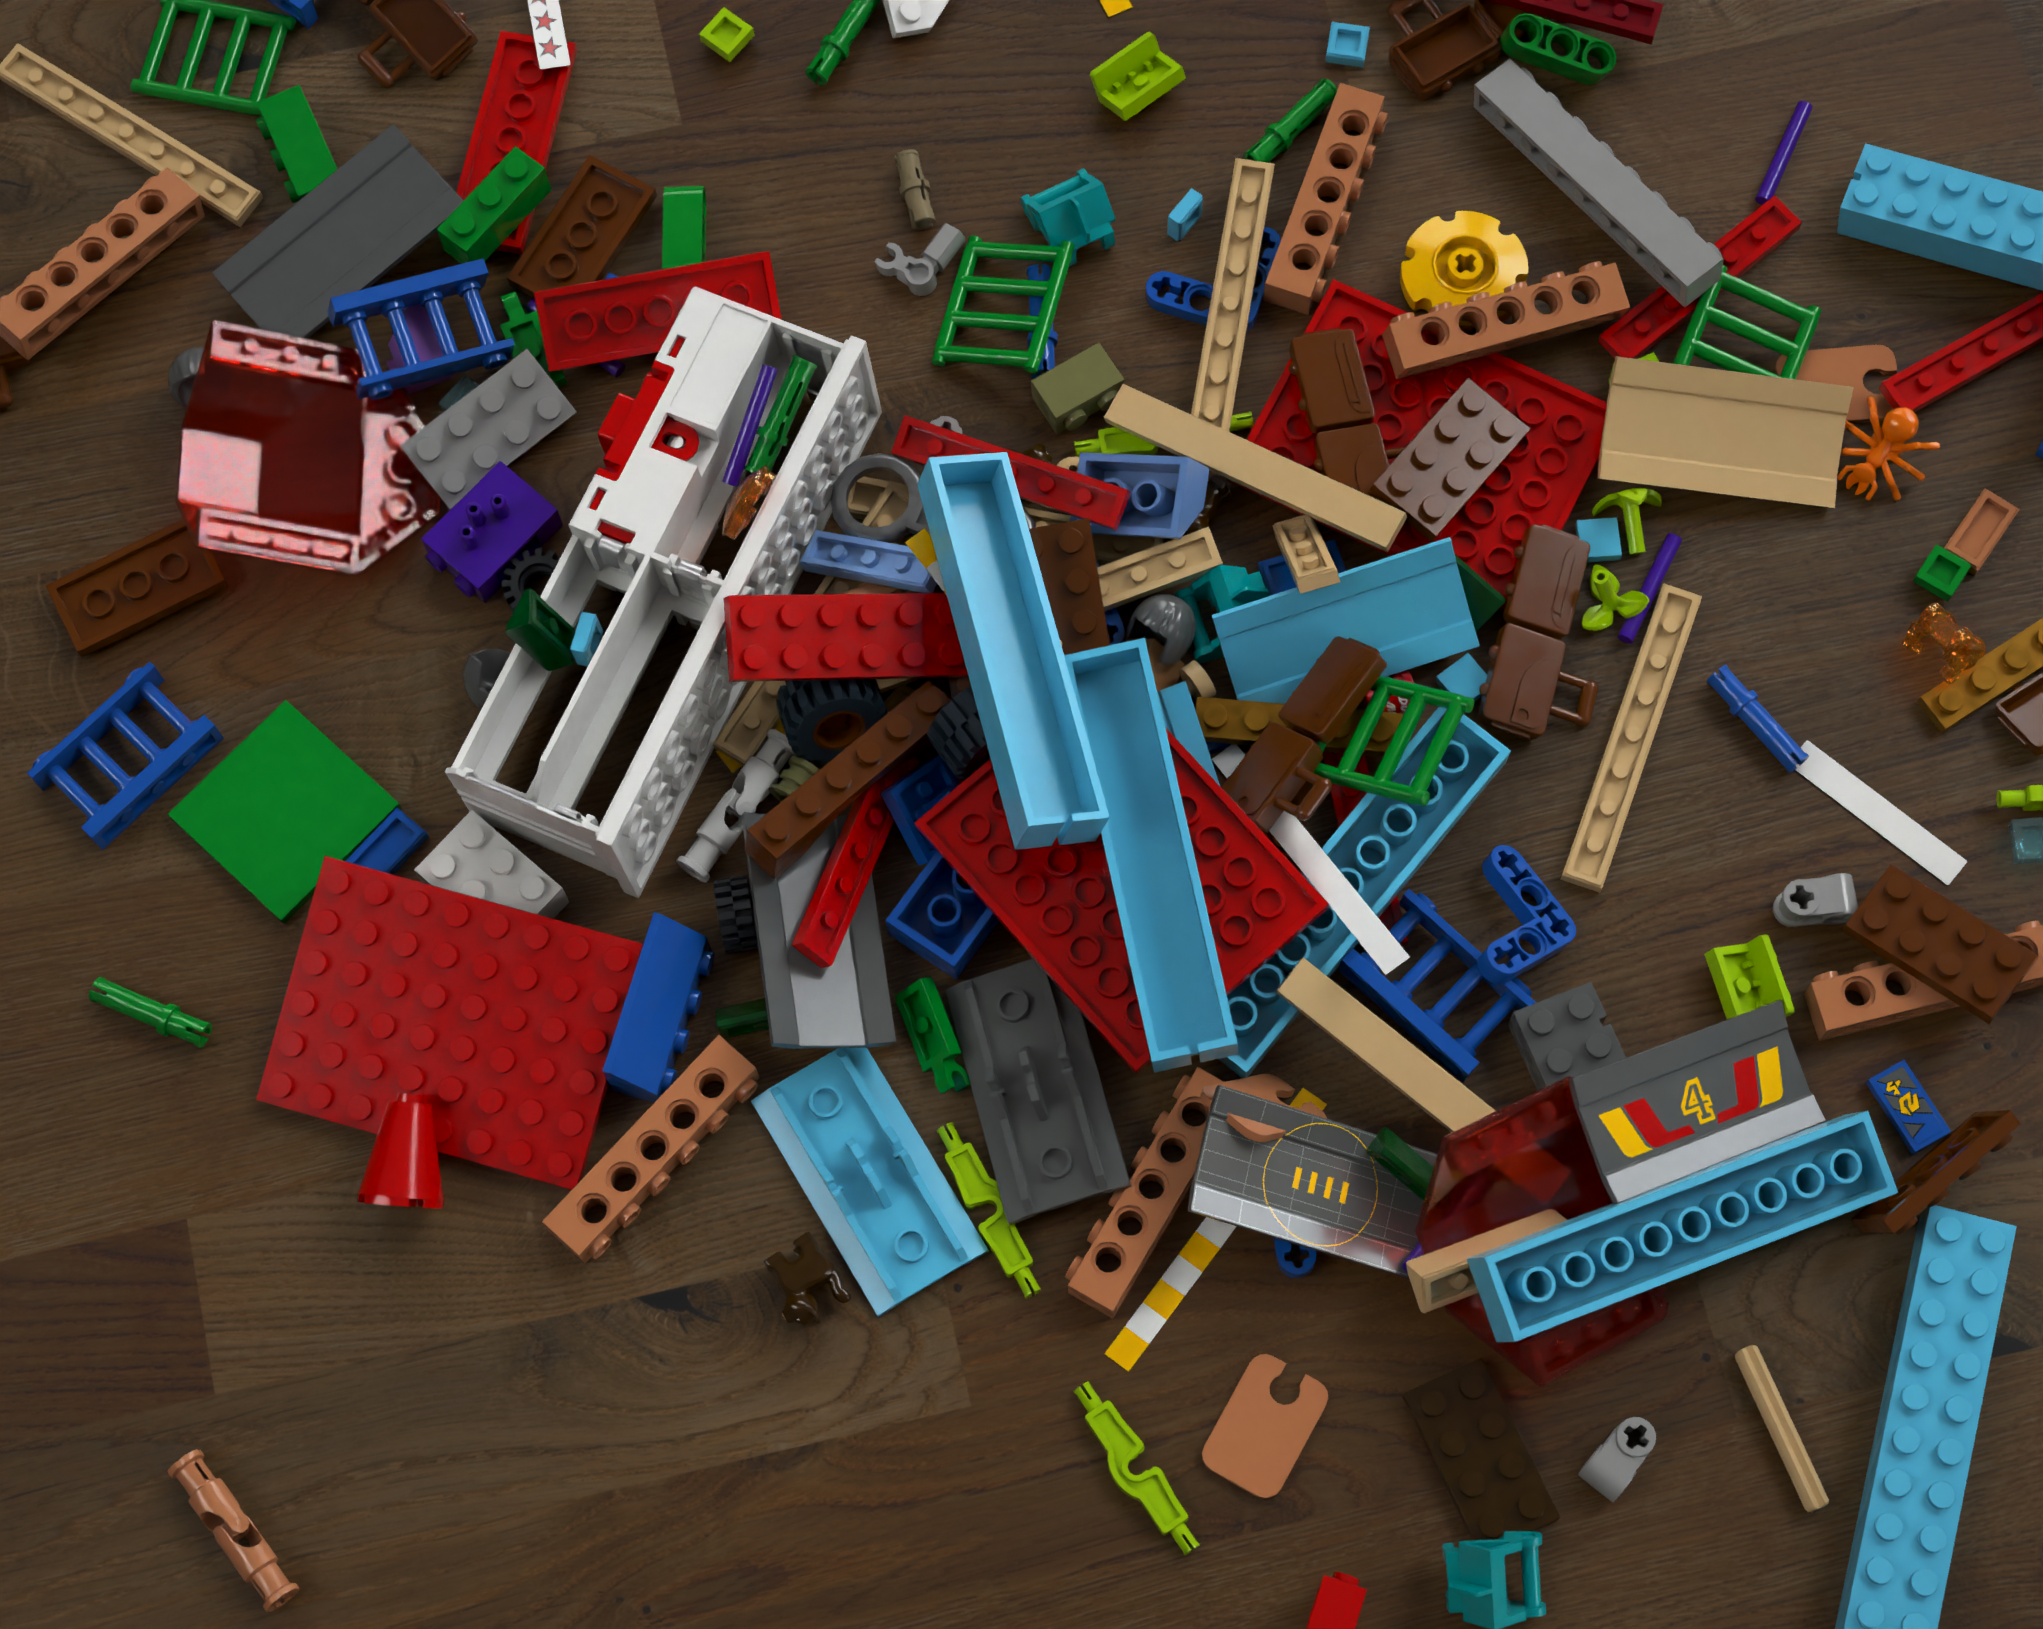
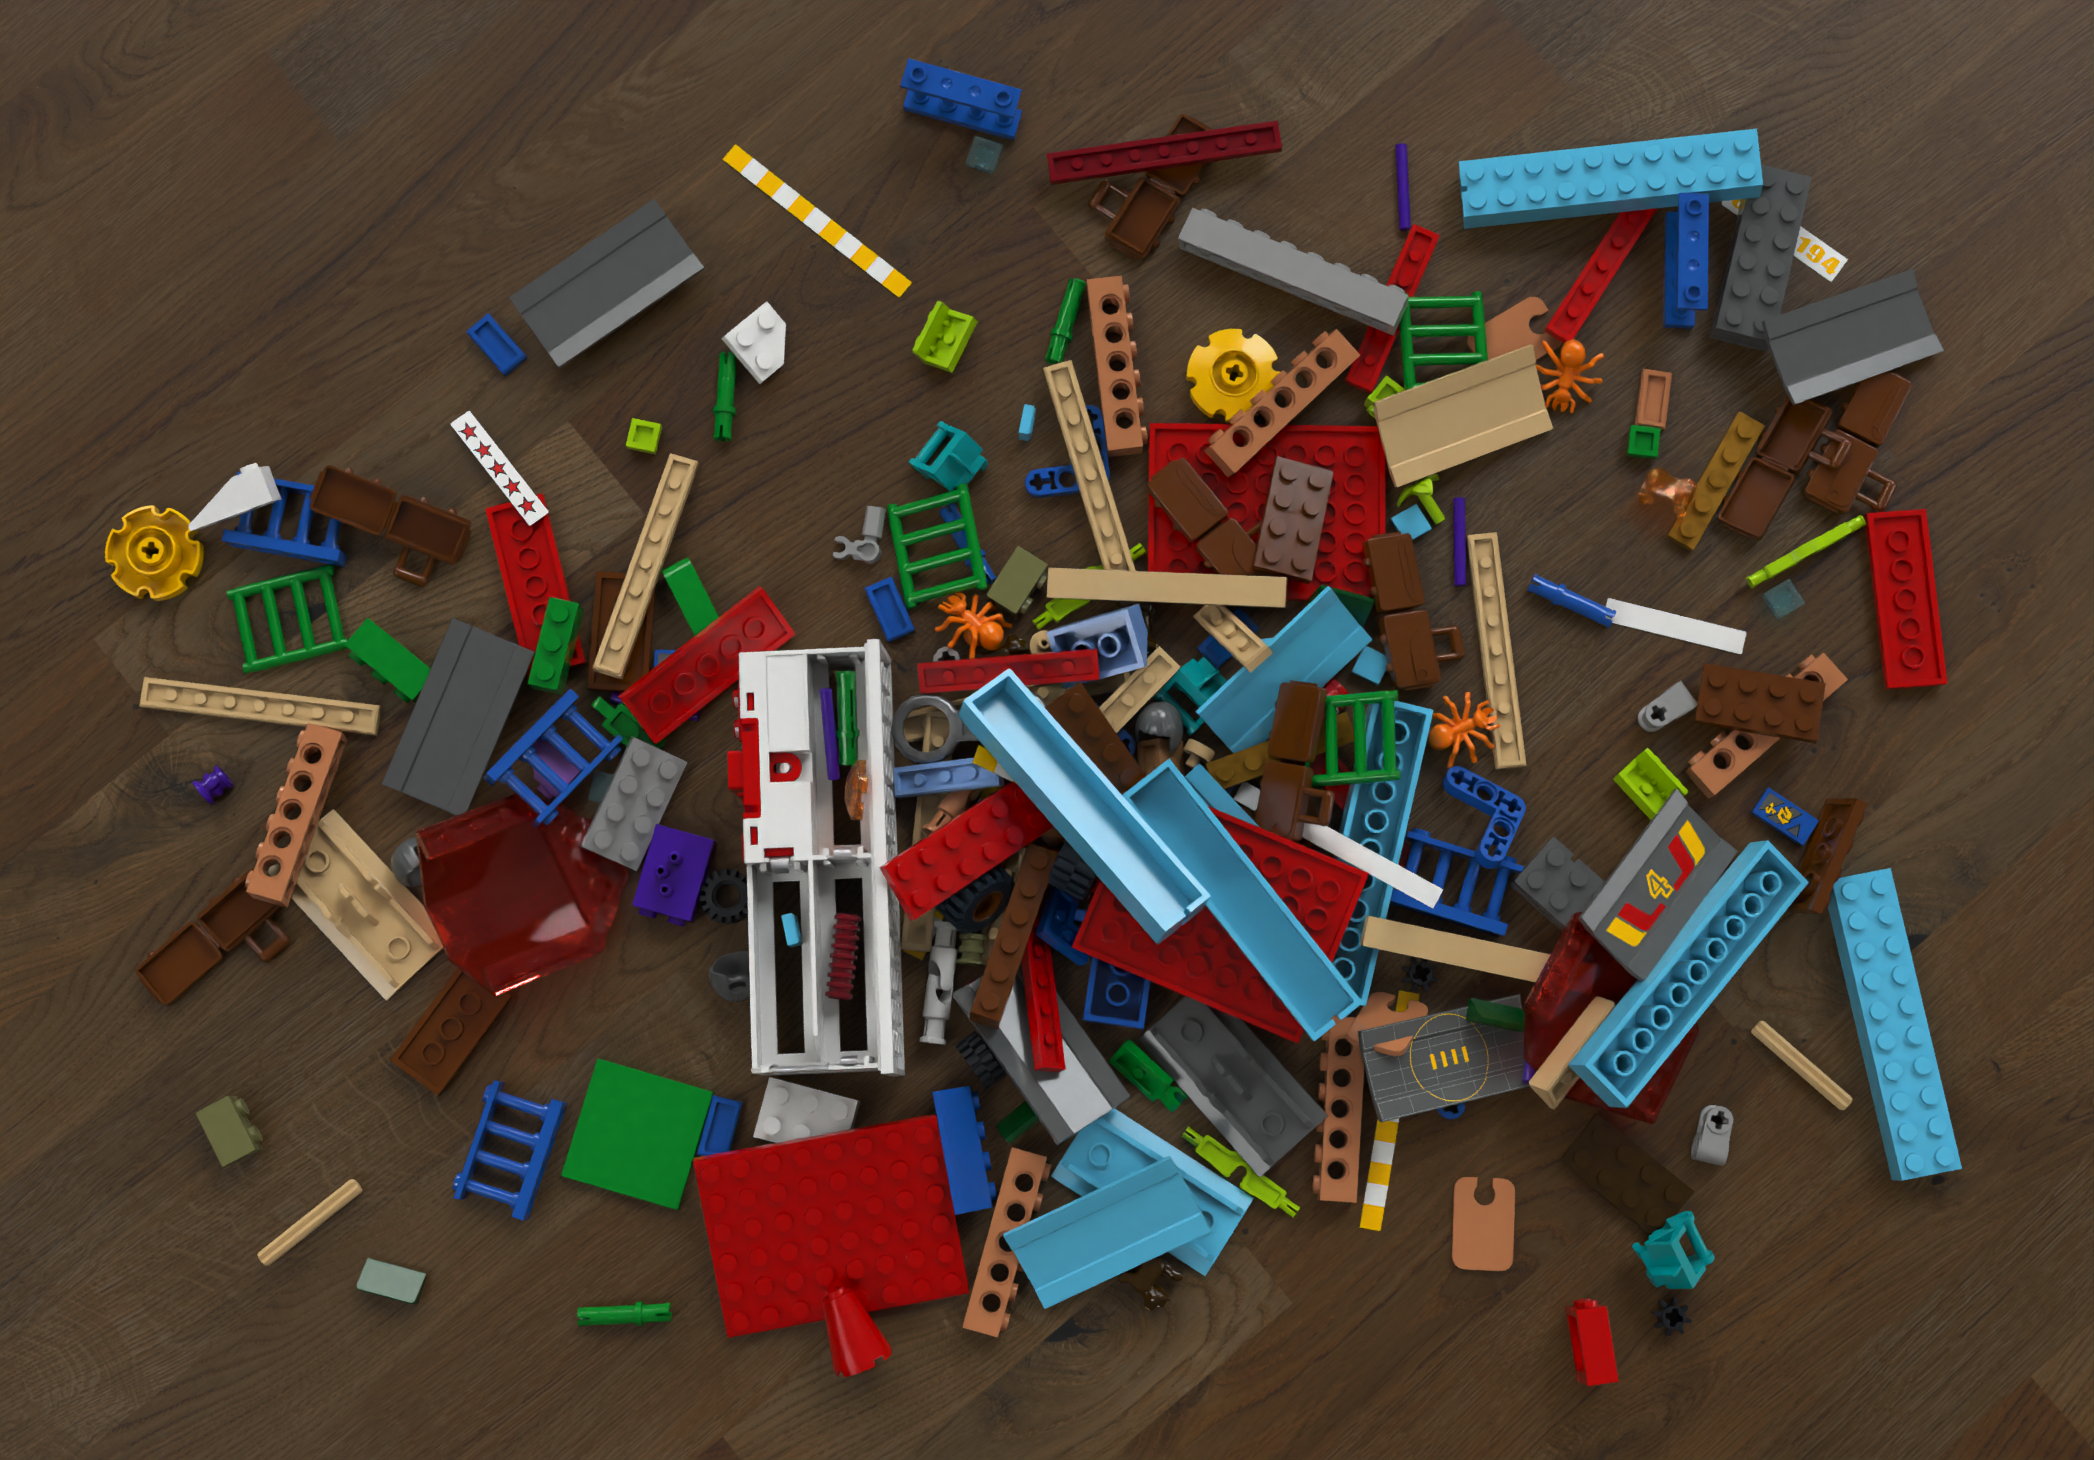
camera: 30 degrees left, 10 degrees up
(24, 183) = (213, 784): none -> dark purple bush
(115, 405) = (363, 907): none -> tan hinge
(541, 632) = (762, 942): dark green slope -> none
(631, 698) = (843, 956): none -> dark red piece
(647, 173) = (645, 566): none -> tan tile
(780, 1188) = (1107, 1232): none -> medium azure hinge
(910, 354) = (889, 609): none -> blue tile
(915, 189) = (832, 489): dark tan pin -> none
(1003, 418) = (978, 628): none -> orange animal
(1149, 1487) = (1430, 1300): lime piece -> none
(1327, 1079) = (1417, 982): none -> black gear
(1347, 44) = (1073, 243): medium azure tile -> none
(1531, 802) = (1457, 729): none -> orange animal
(1575, 44) = (1233, 184): green beam -> none
(1605, 587) = (1430, 555): lime plant -> none

